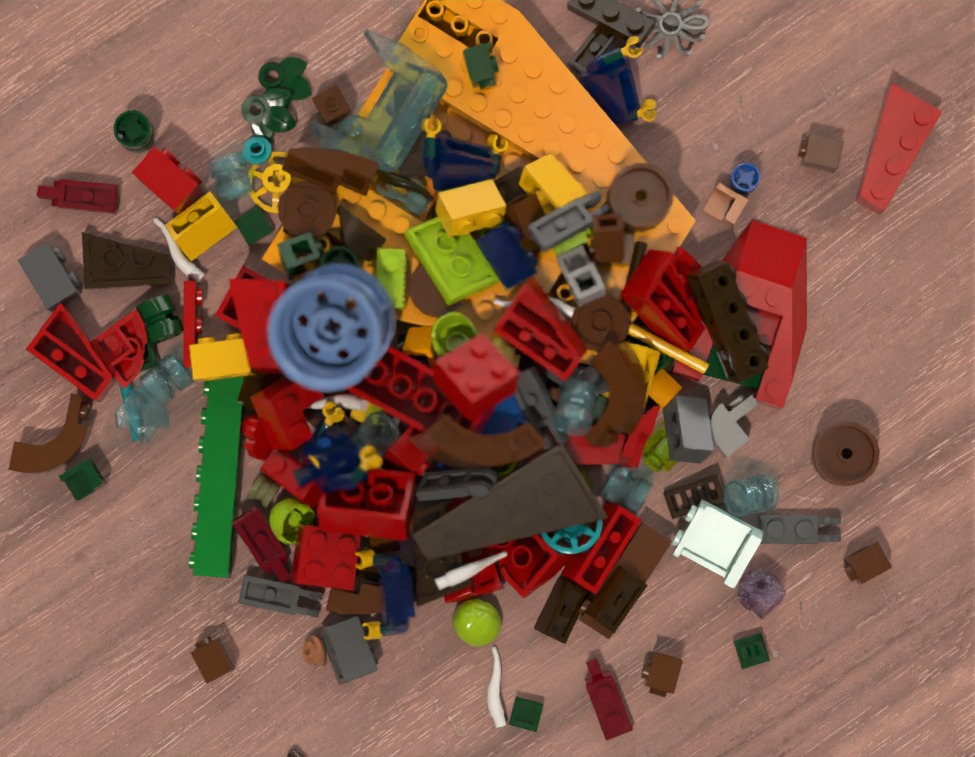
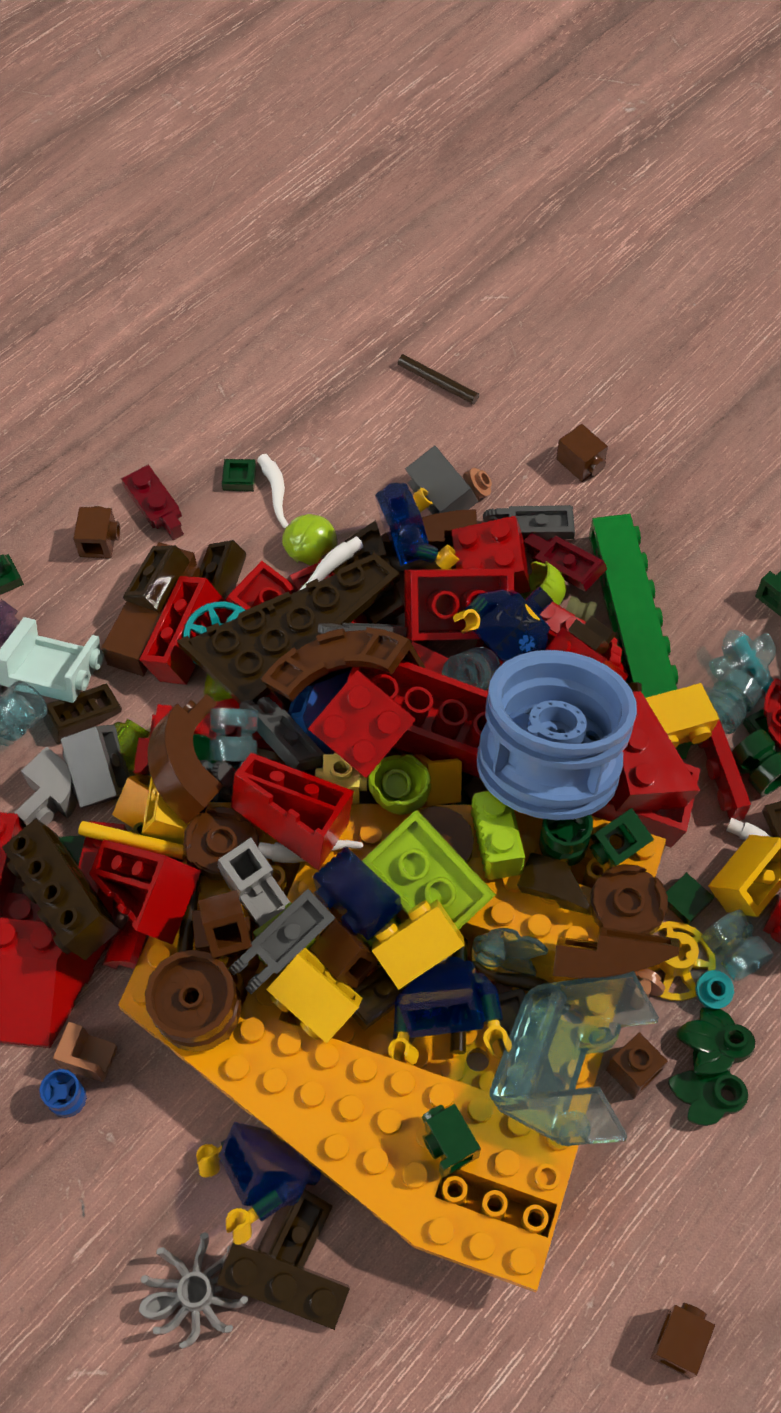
camera: 170 degrees right, 25 degrees down
(267, 442) = (593, 634): none -> dark brown slope
(626, 489) = (155, 688): clear light blue wheel -> none

